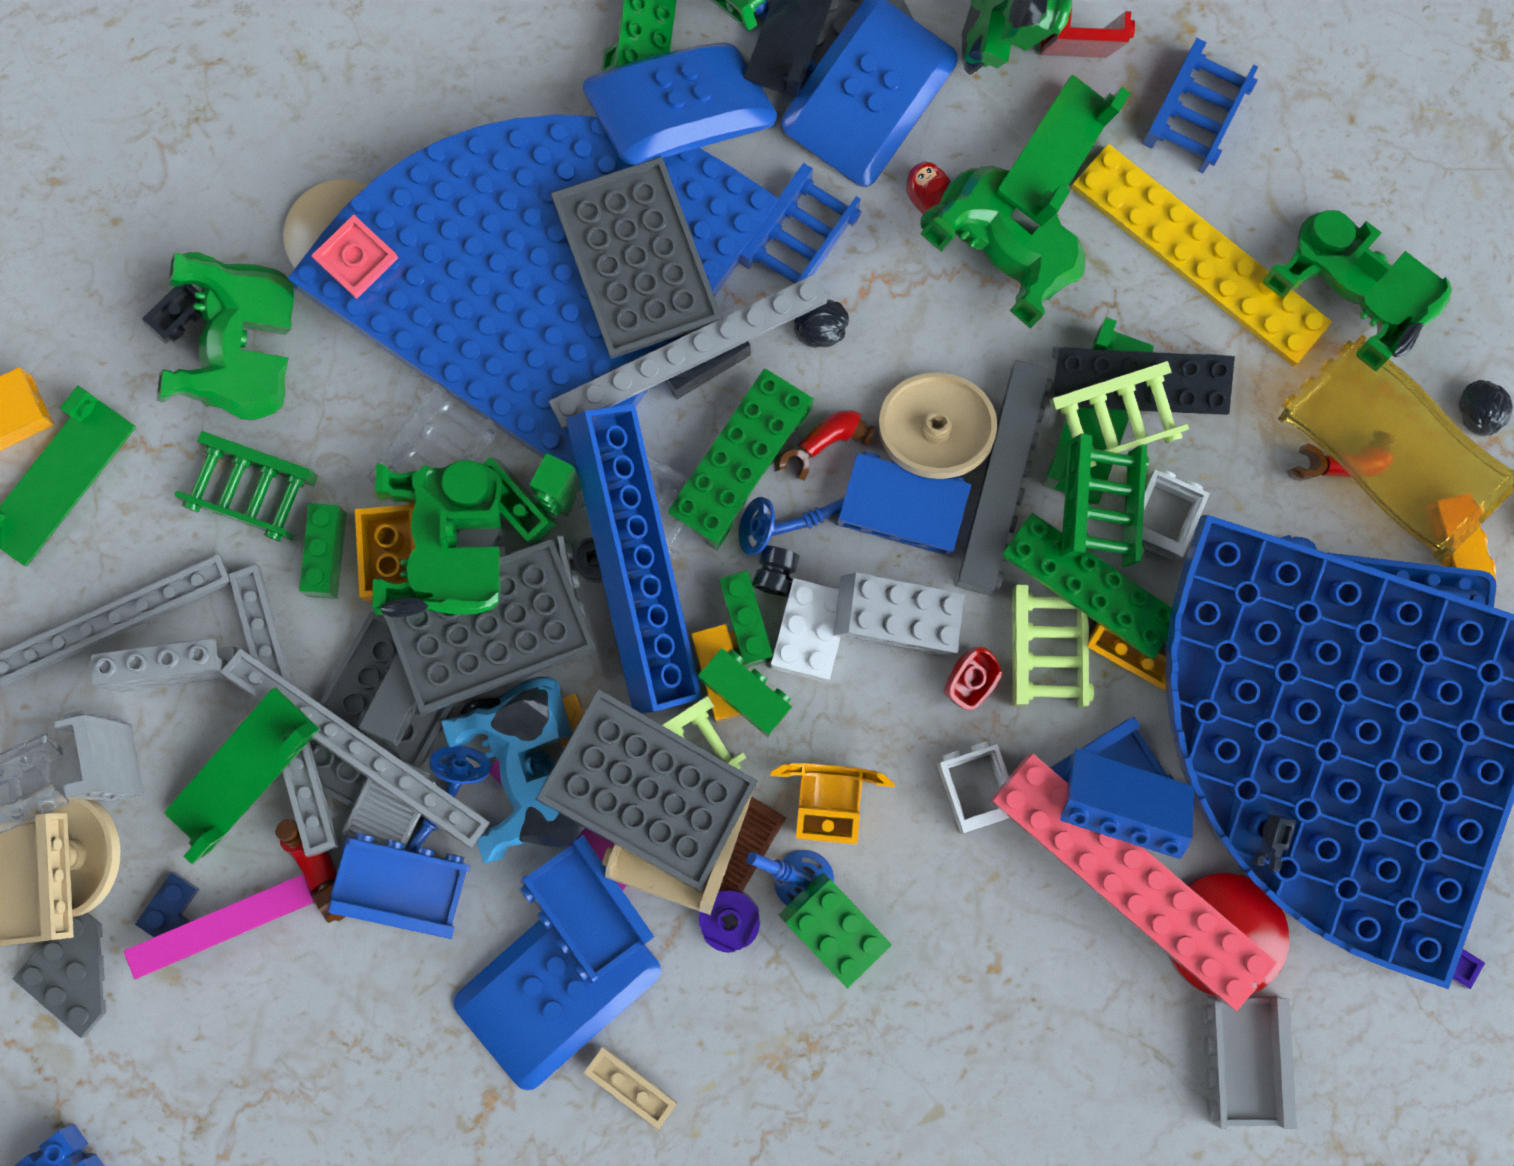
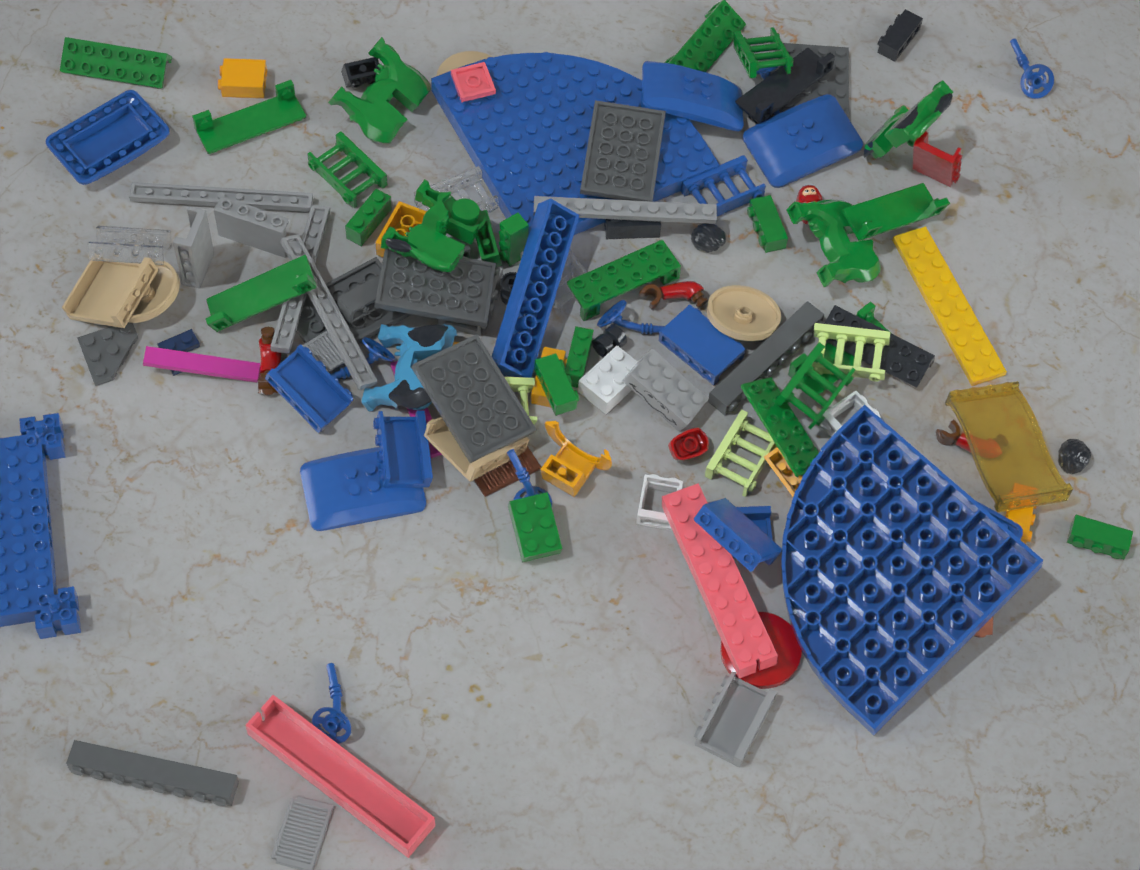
camera: 25 degrees right, 20 degrees down
(630, 1087) = (372, 553): tan plate -> none
(737, 936) = (478, 509): dark purple plate -> none
(891, 257) = (767, 224): none -> green brick
(1173, 107) = (987, 215): blue fence -> none
(1276, 838) = (814, 590): black plate -> none
(1394, 297) = (1029, 342): green animal -> none
(1467, 969) = (894, 737): dark purple tile -> none

